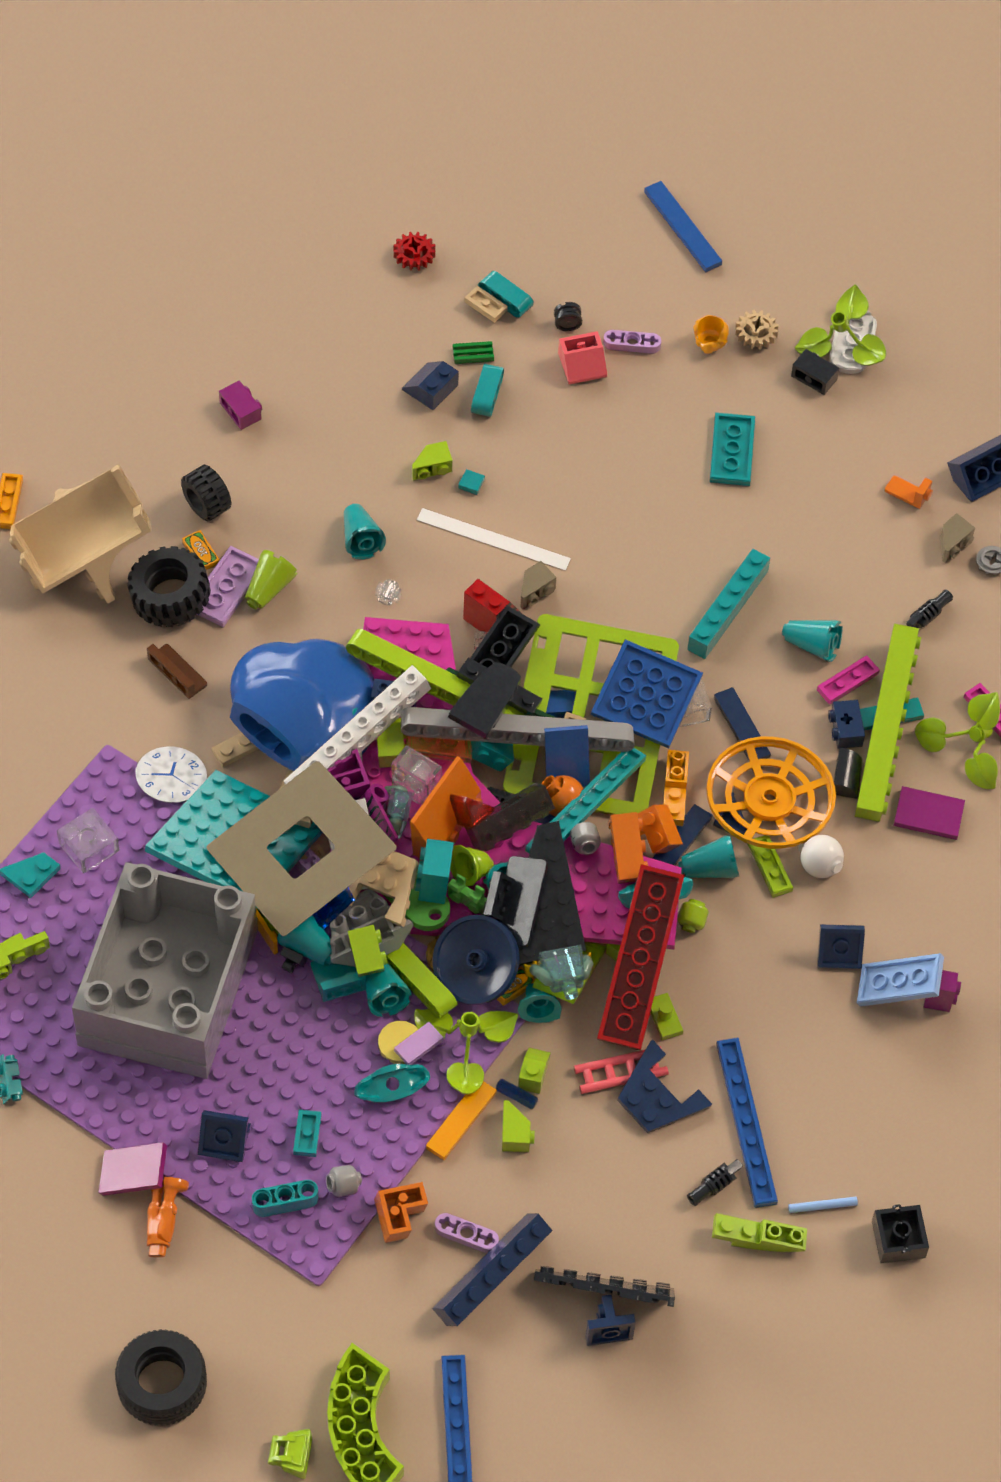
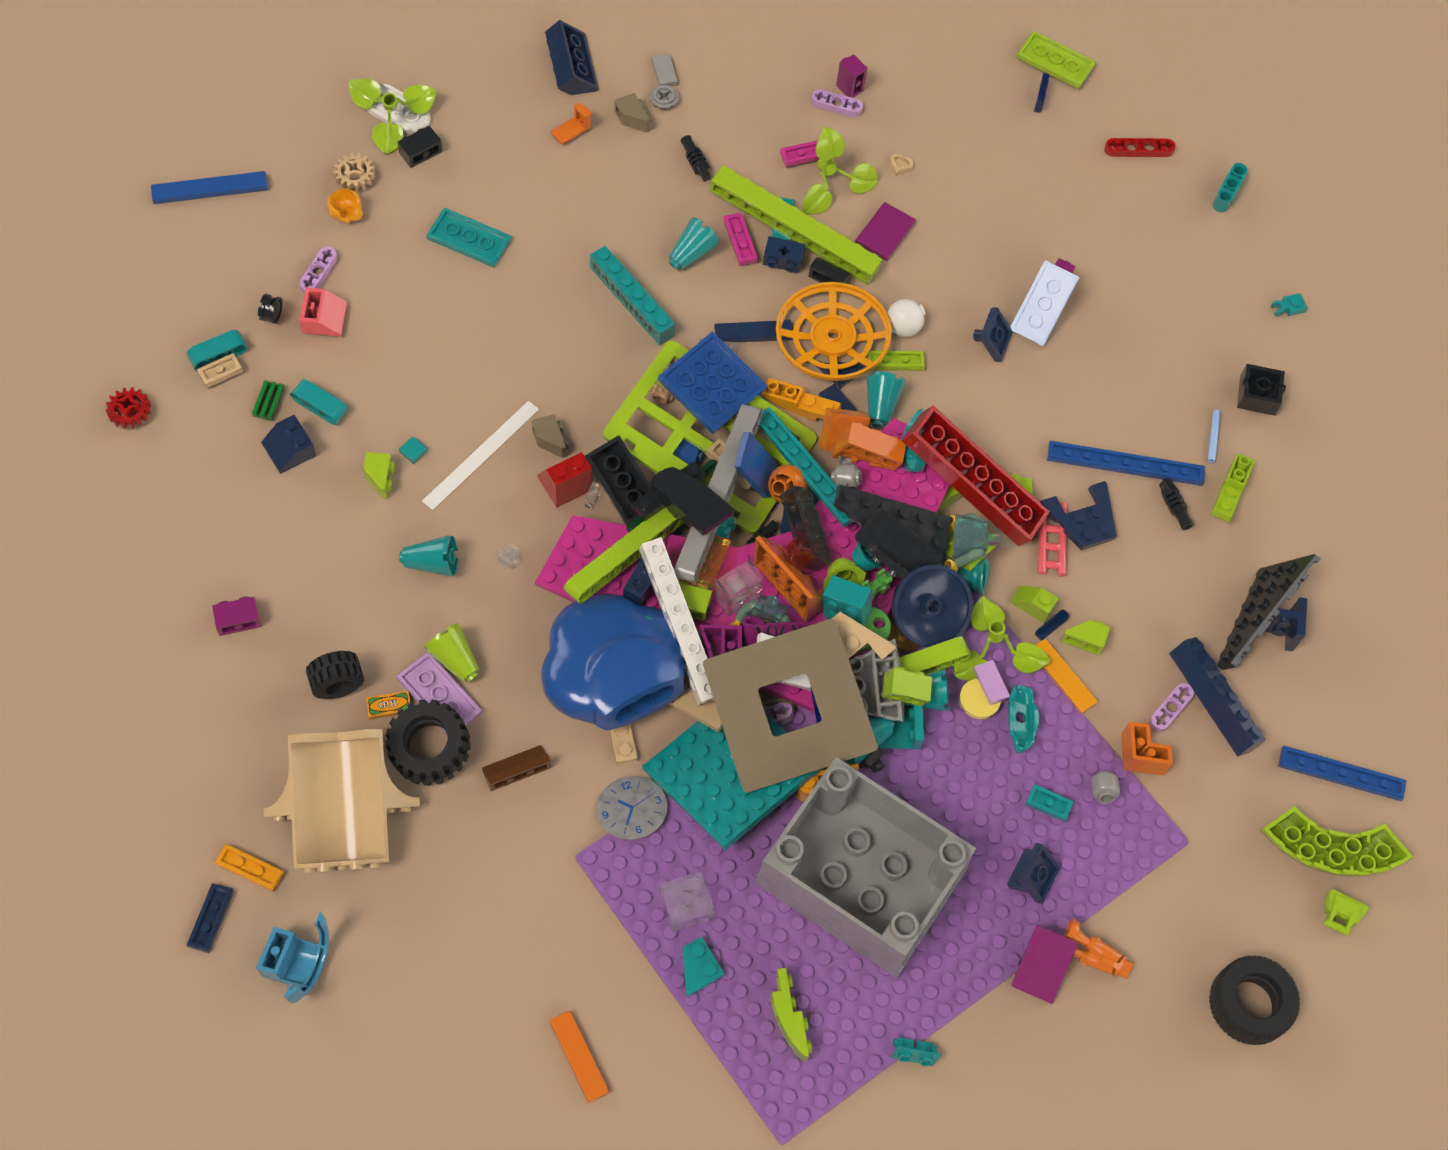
camera: 75 degrees left, 5 degrees up
(293, 1190) = (1104, 849): teal beam -> none

